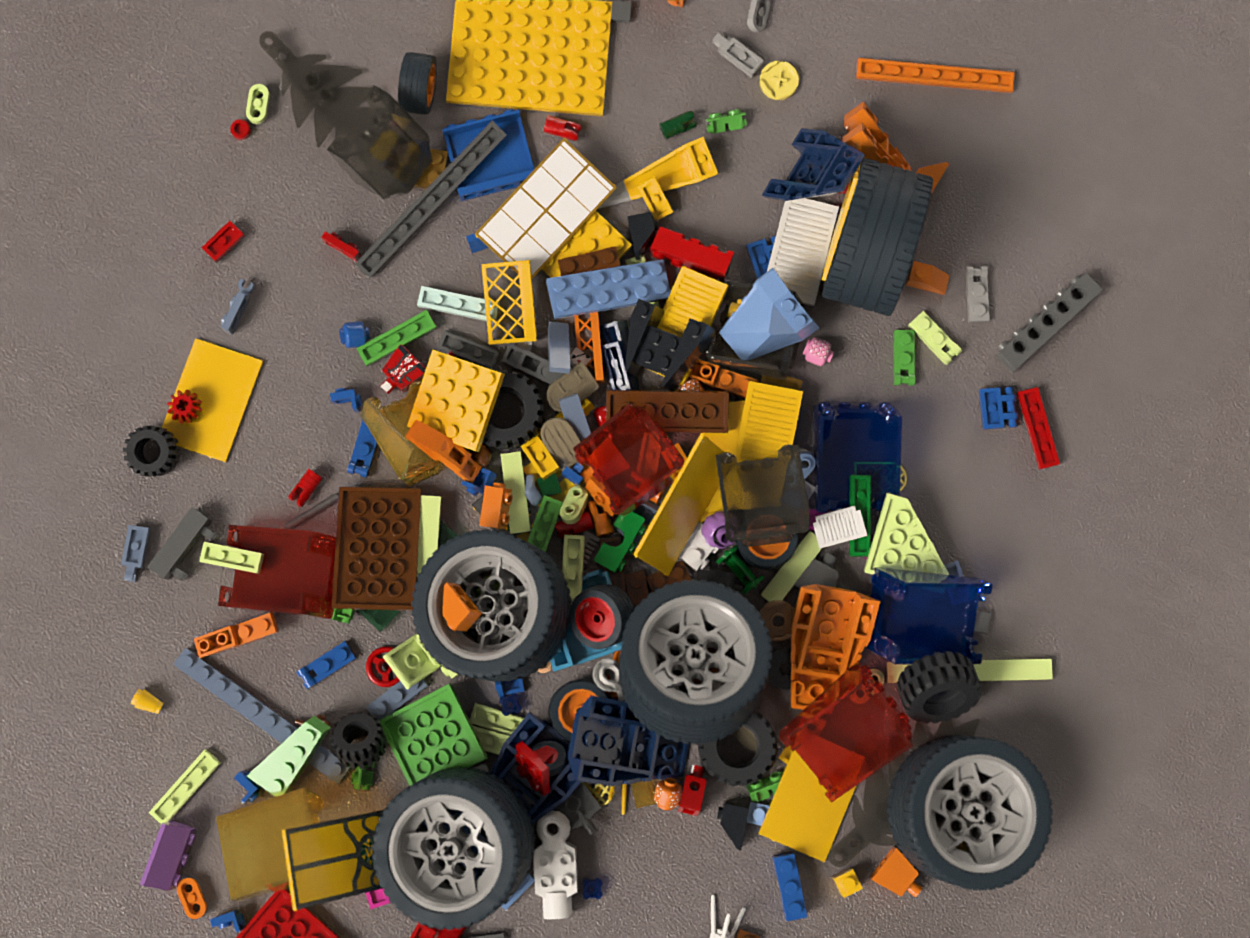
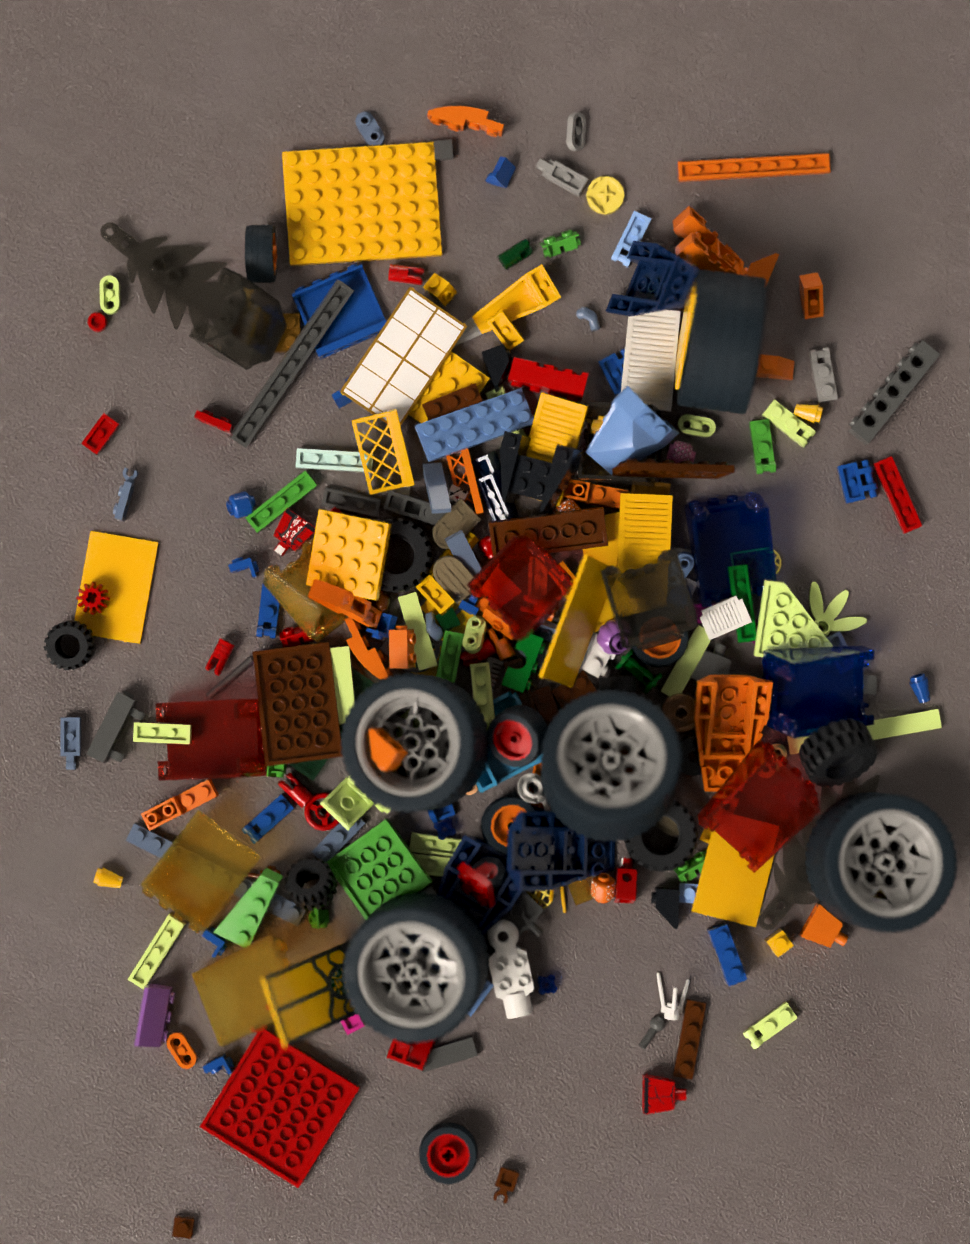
camera: 10 degrees left, 5 degrees up
(242, 709) = (199, 872): none -> clear yellow windscreen
(363, 643) = (298, 793): none -> red hinge
(384, 477) = (290, 636): none -> red hinge
(462, 513) = (369, 659): none -> orange slope
(595, 148) = (440, 289): none -> yellow bracket
(676, 42) = (502, 173): none -> blue tile
(745, 198) = (589, 315): none -> sand blue arm
(803, 118) = (633, 232): none -> light blue plate
(809, 365) = (669, 469): none -> reddish brown plate
(838, 324) = (696, 424): none -> yellowish green plate
(946, 547) = (826, 619): none -> yellowish green plant
(957, 329) = (809, 412): none -> yellow cone
(976, 211) = (811, 295): none -> orange slope
(1035, 633) = (920, 687): none -> blue cone

